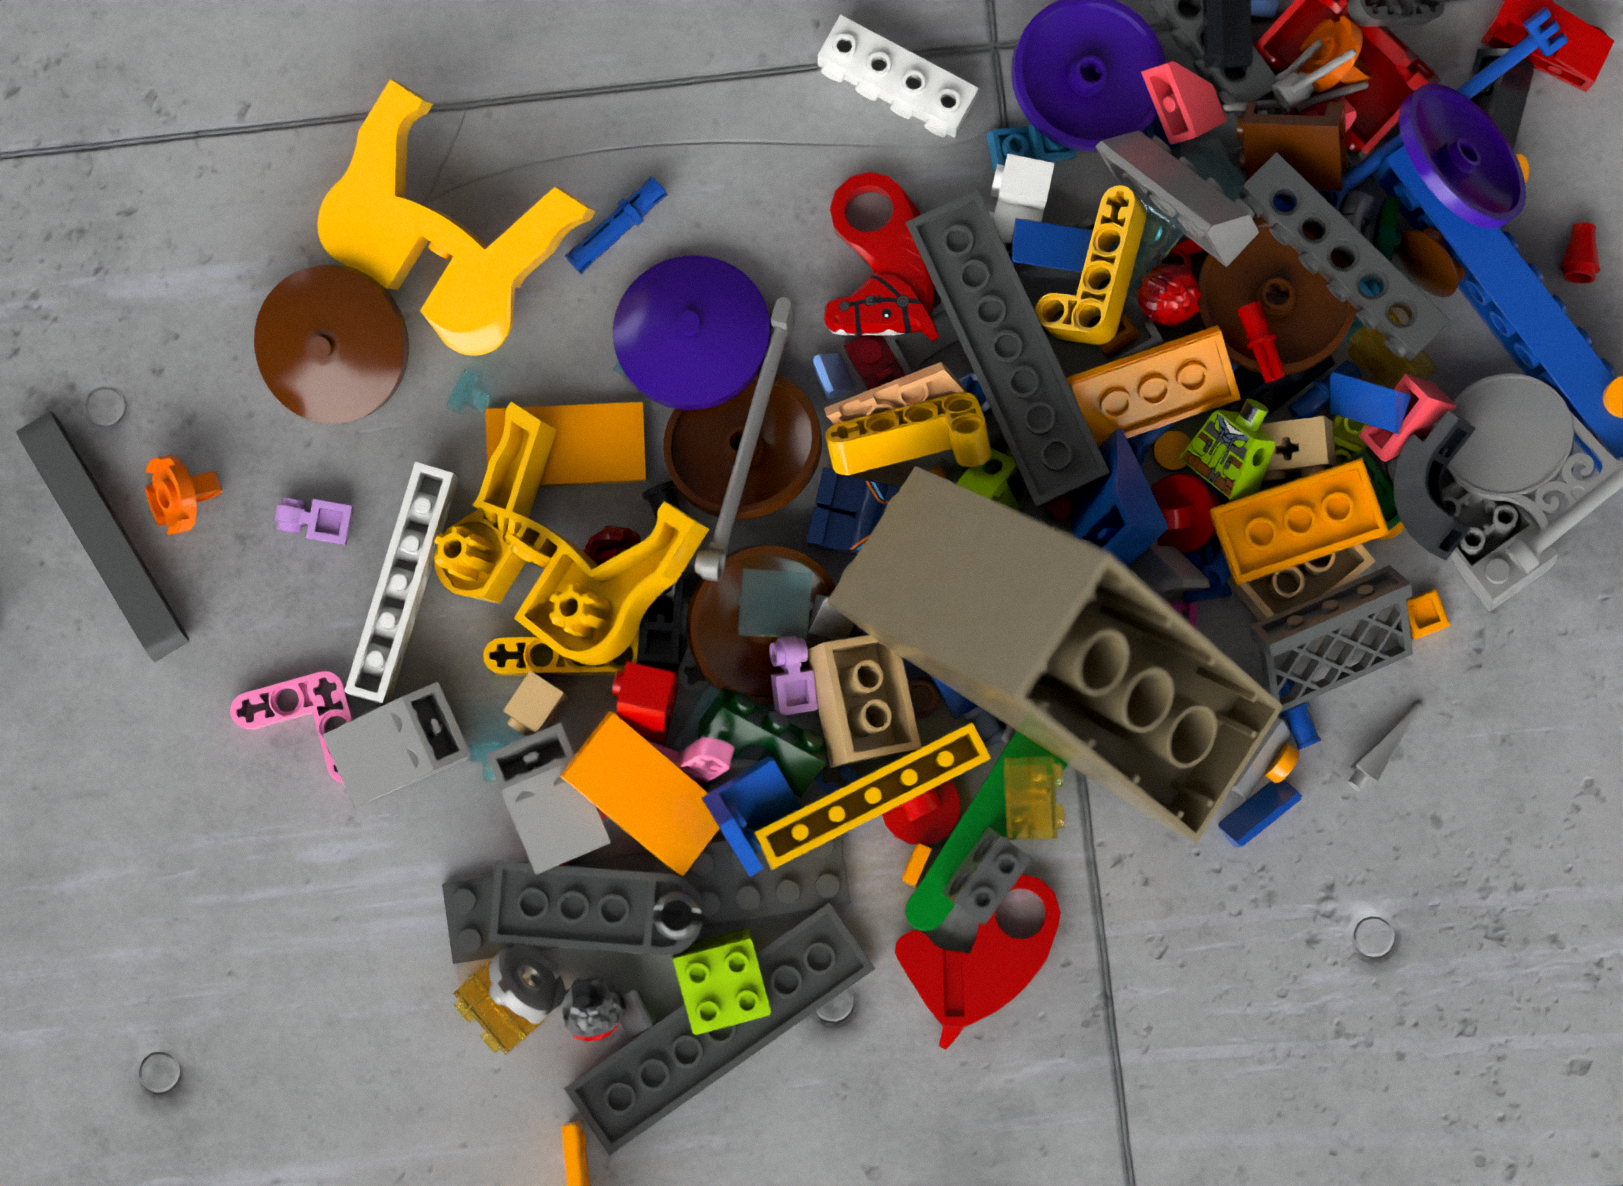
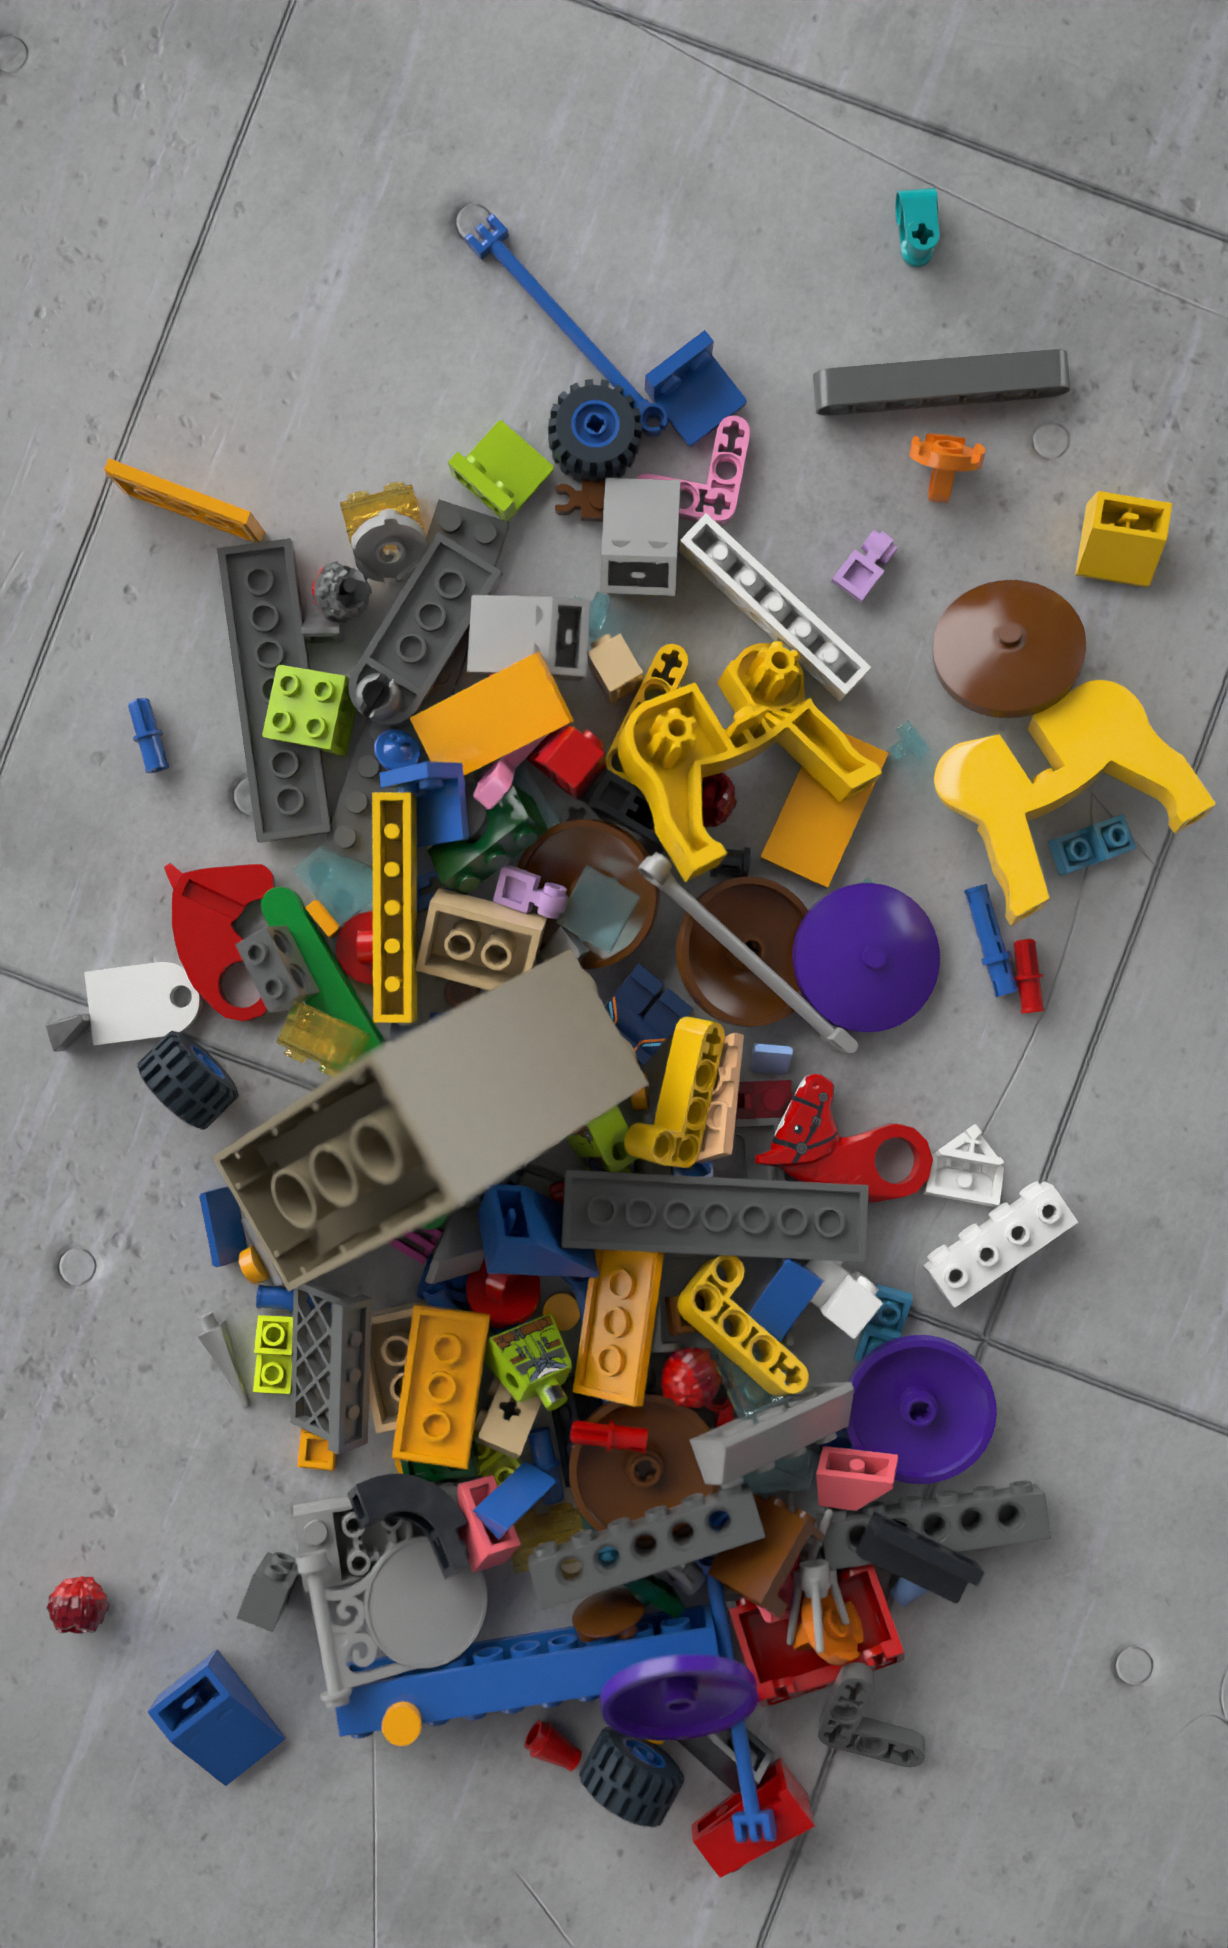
camera: 120 degrees right, 5 degrees up
(173, 290) = (1122, 538): none -> yellow slope
(173, 1041) = (493, 244): none -> blue hinge
(227, 766) = (694, 390): none -> blue bracket
(314, 843) = (594, 431): none -> black wheel
(380, 816) = (588, 500): none -> reddish brown plate
(394, 915) = (501, 471): none -> lime bracket
(477, 176) = (1091, 844): none -> dark azure slope
(632, 174) = (1028, 976): none -> red axle
(719, 873) = (396, 749): none -> blue hat
(825, 1131) = (148, 735): none -> blue axle
(844, 140) = (966, 1170): none -> white slope
(874, 868) = (337, 882): none -> clear light blue wing
(1089, 1007) = (138, 1002): none -> white tile
(1137, 911) = (187, 1080): none -> black wheel
(1150, 1061) = (65, 1031): none -> flat silver slope
(1356, 701) = (274, 1355): none -> neon yellow slope
(1565, 166) = (631, 1778): none -> black wheel
(1575, 587) = (269, 1591): none -> dark grey brick

